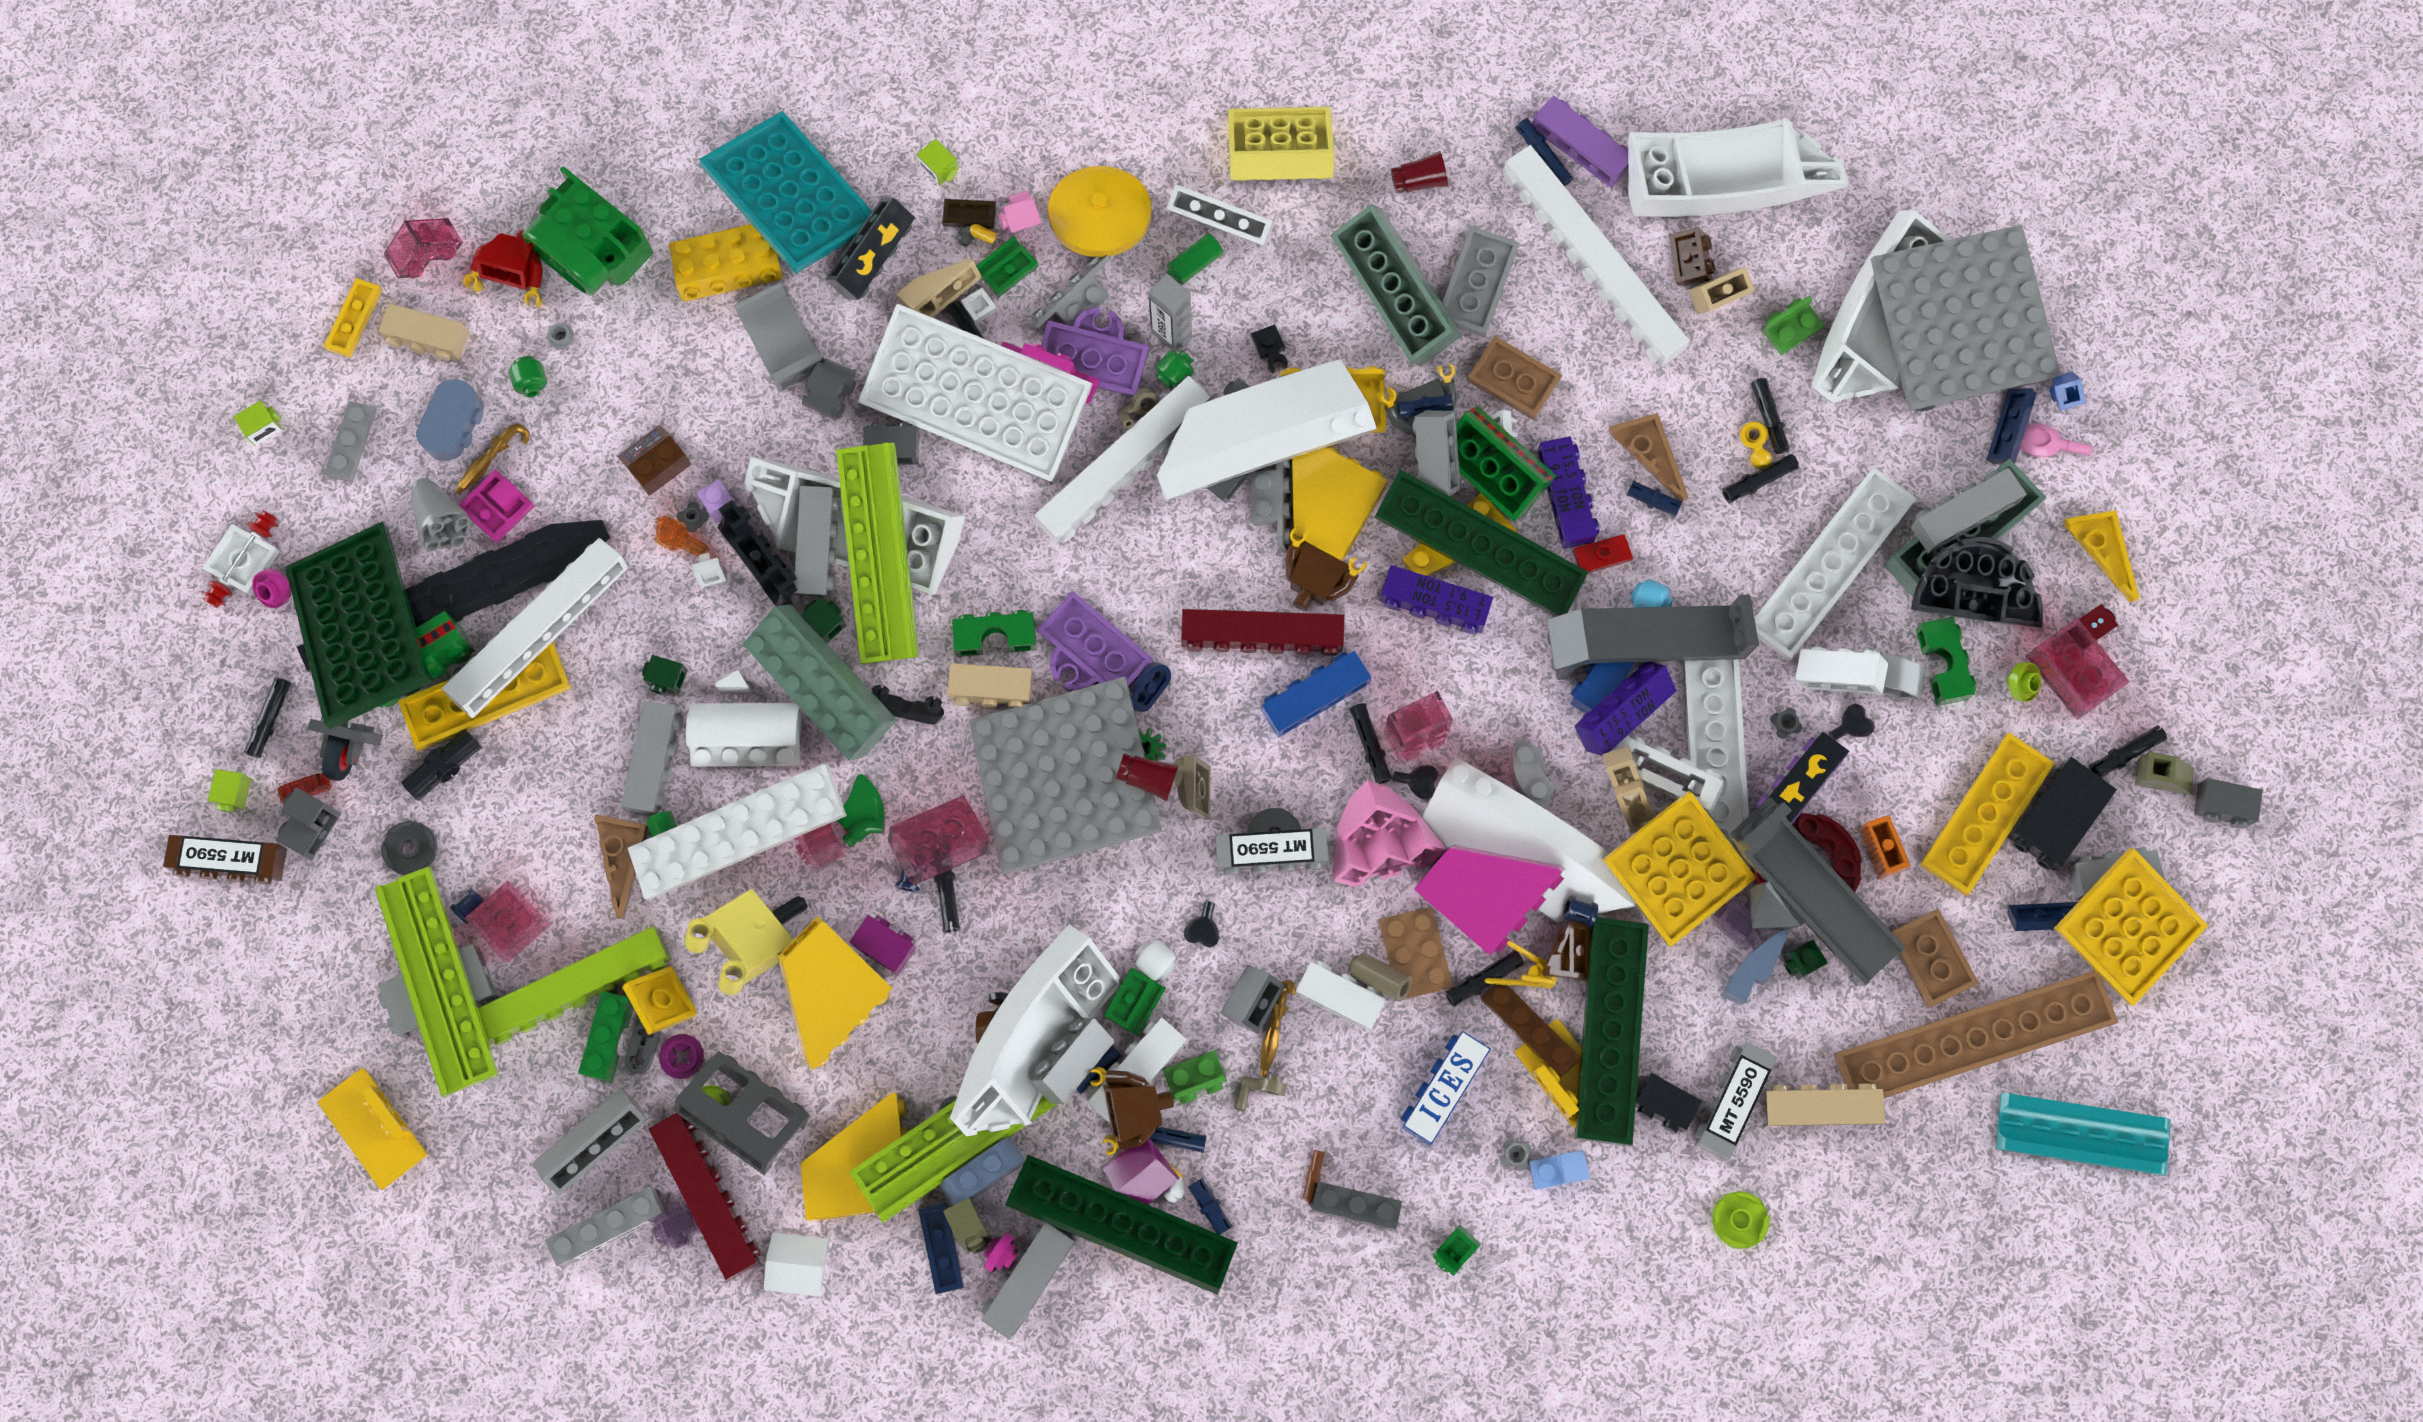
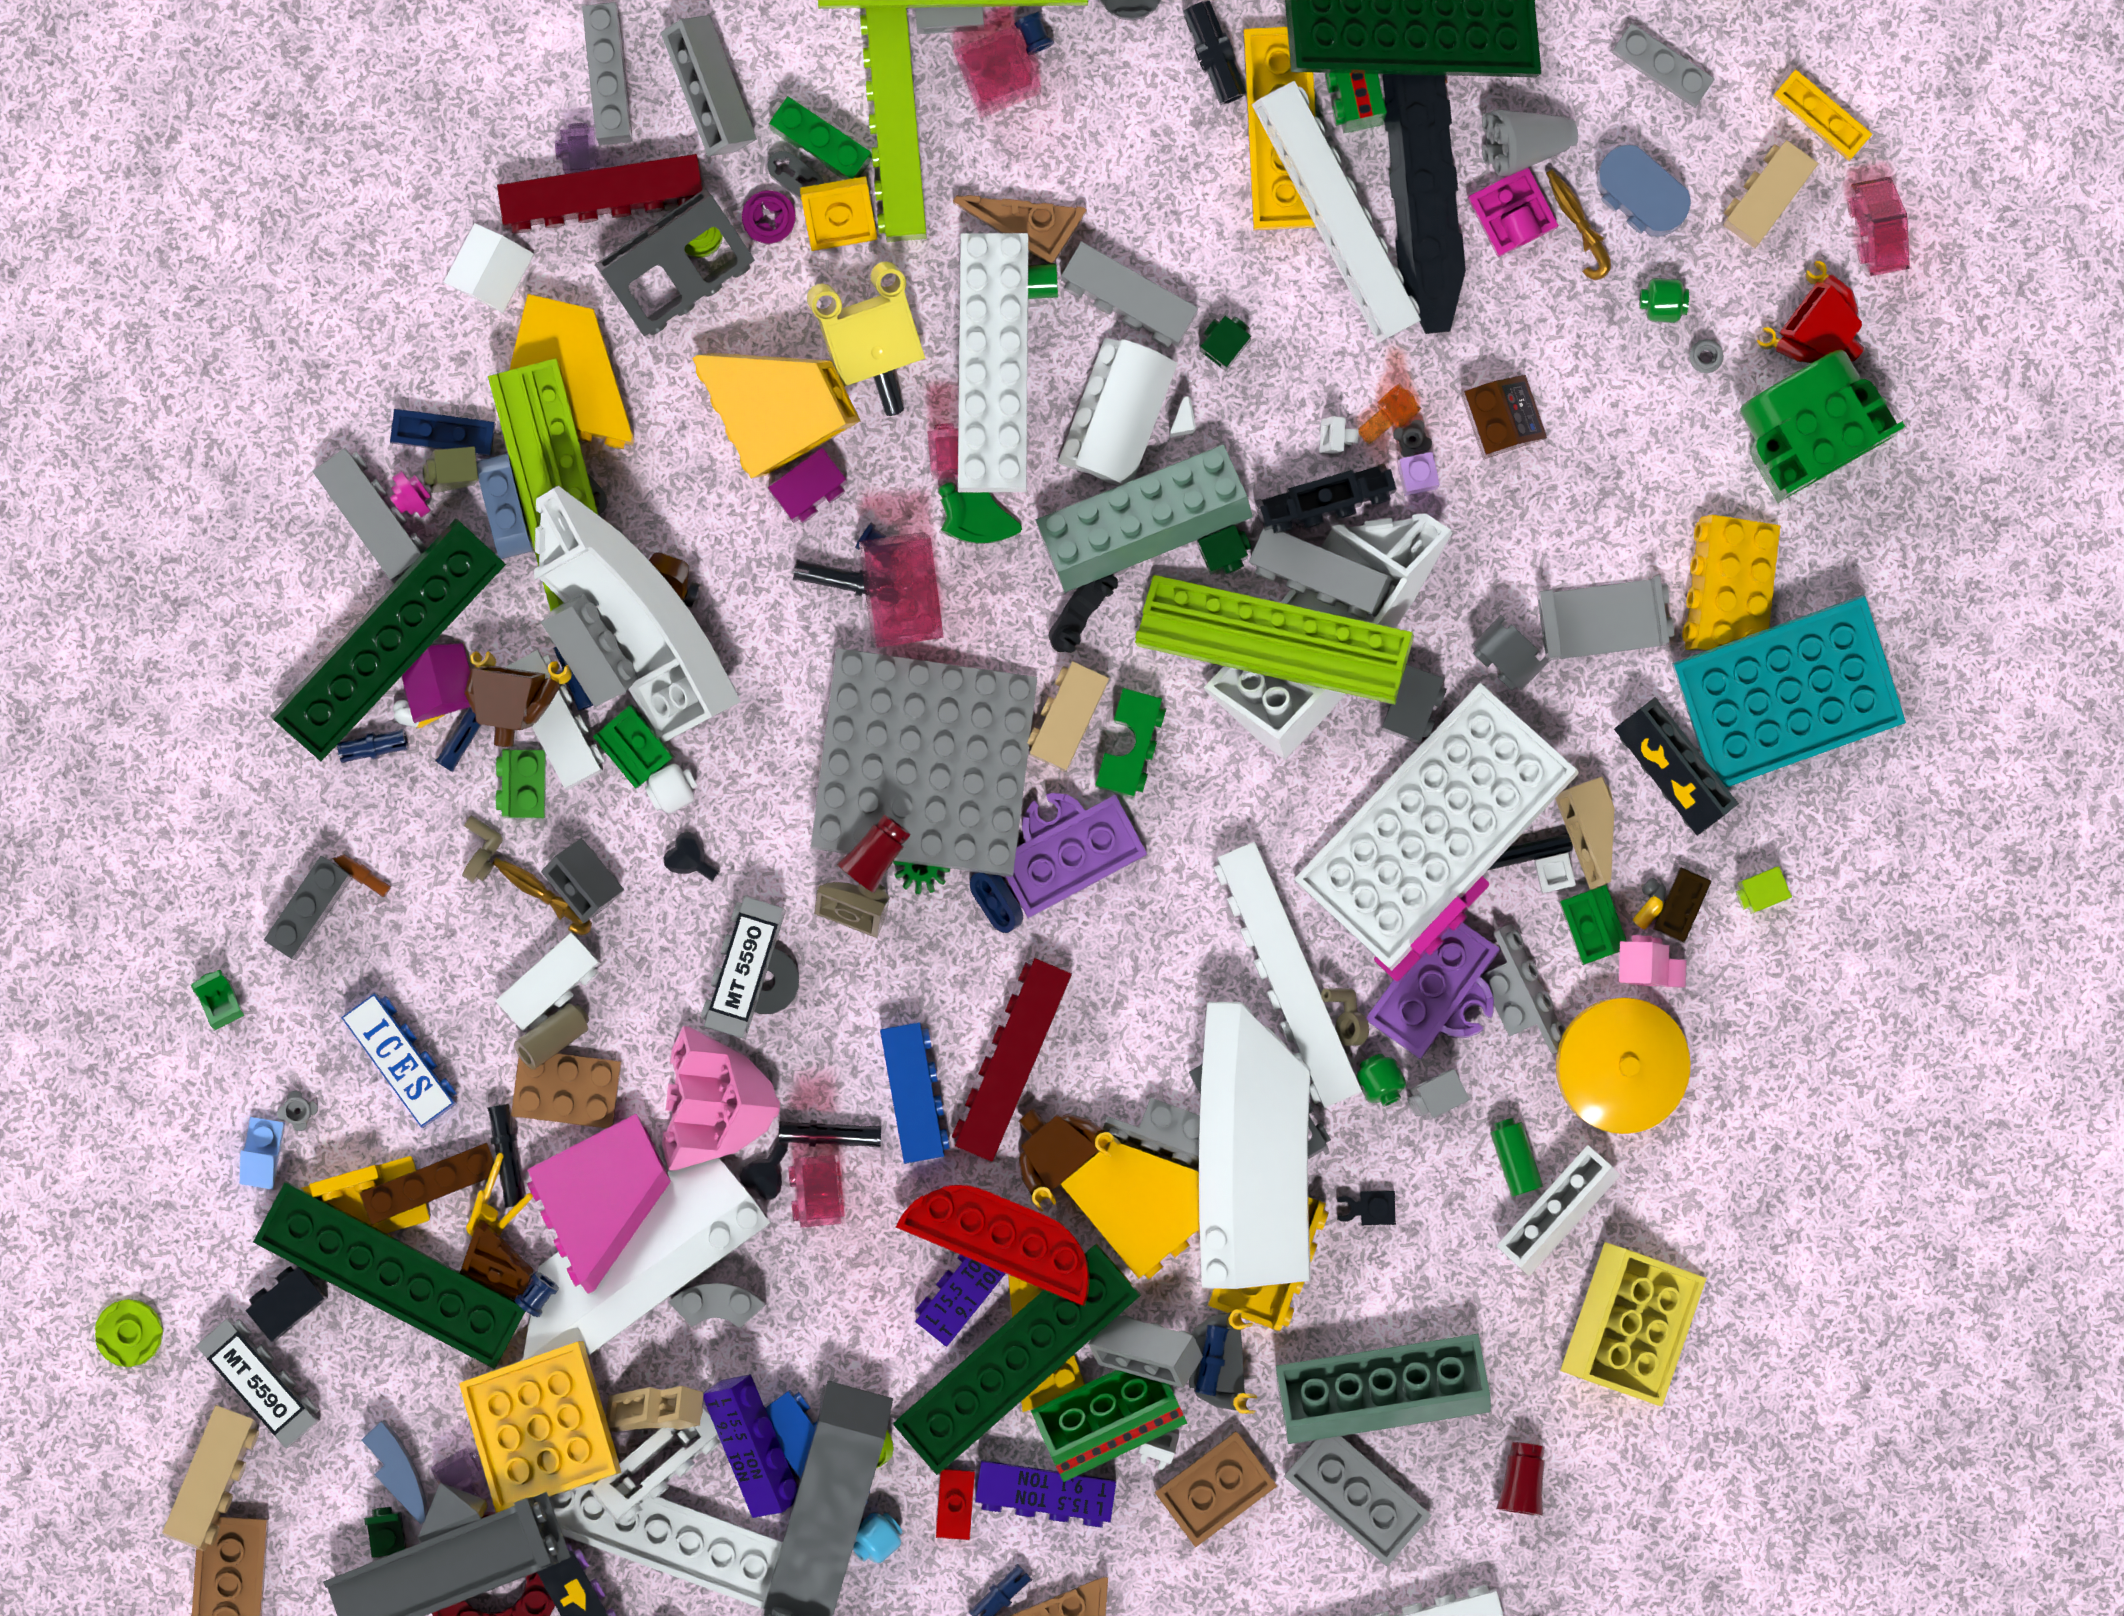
camera: 110 degrees right, 10 degrees up
(1397, 583) = (1001, 1237): none -> red plate

